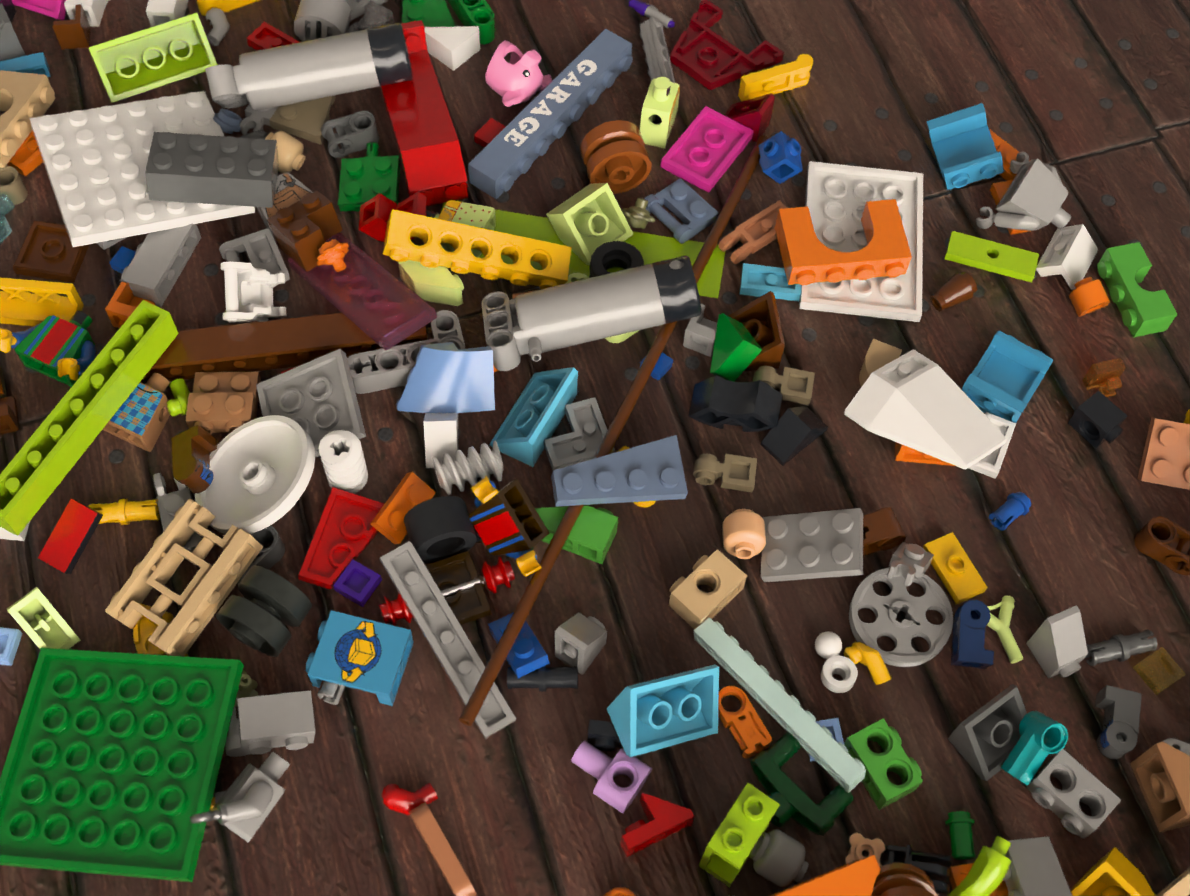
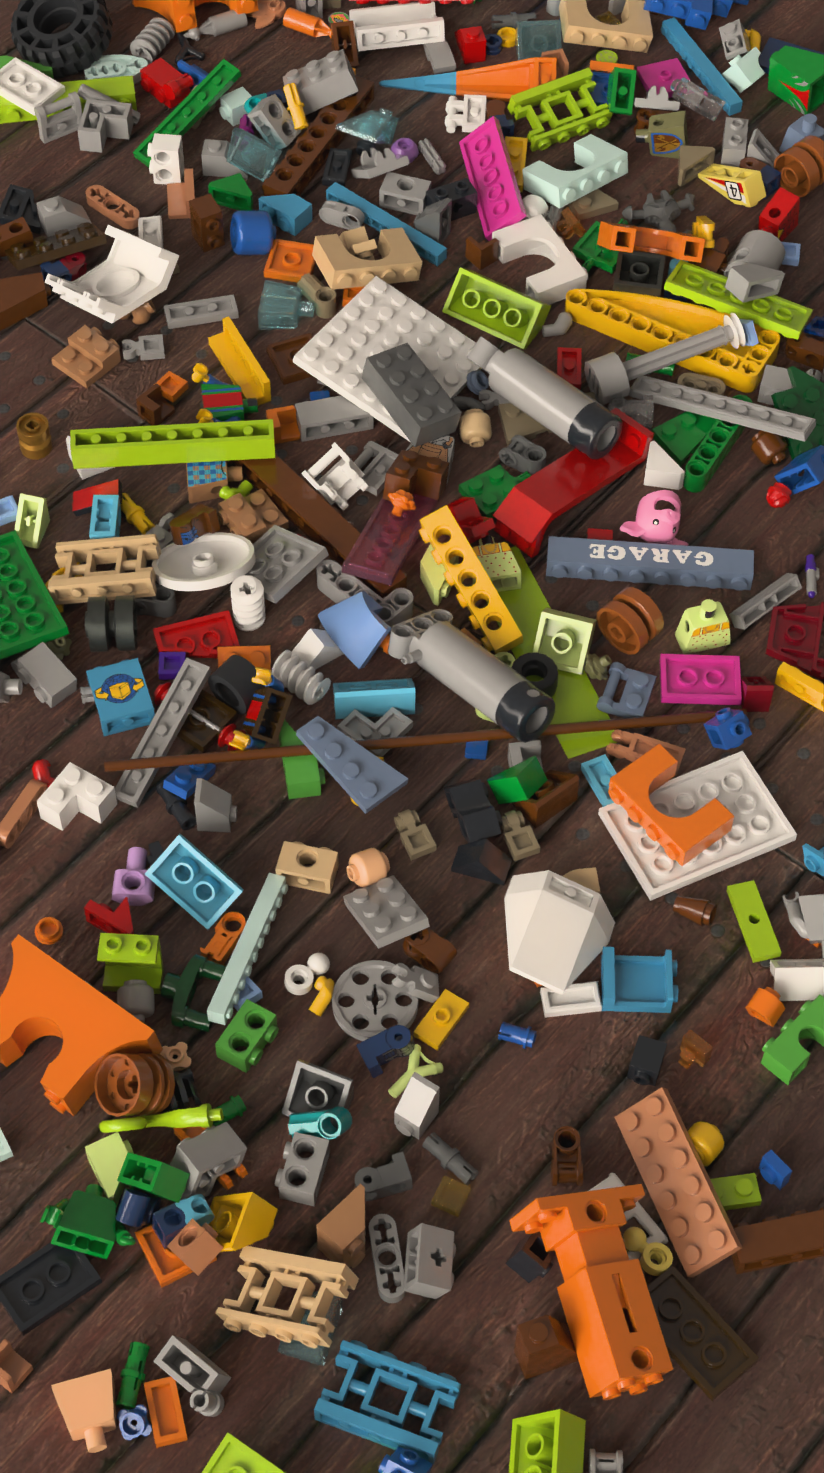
camera: 60 degrees right, 5 degrees down
(113, 542) = (105, 517): none -> medium azure brick
(459, 771) = (73, 793): none -> white brick

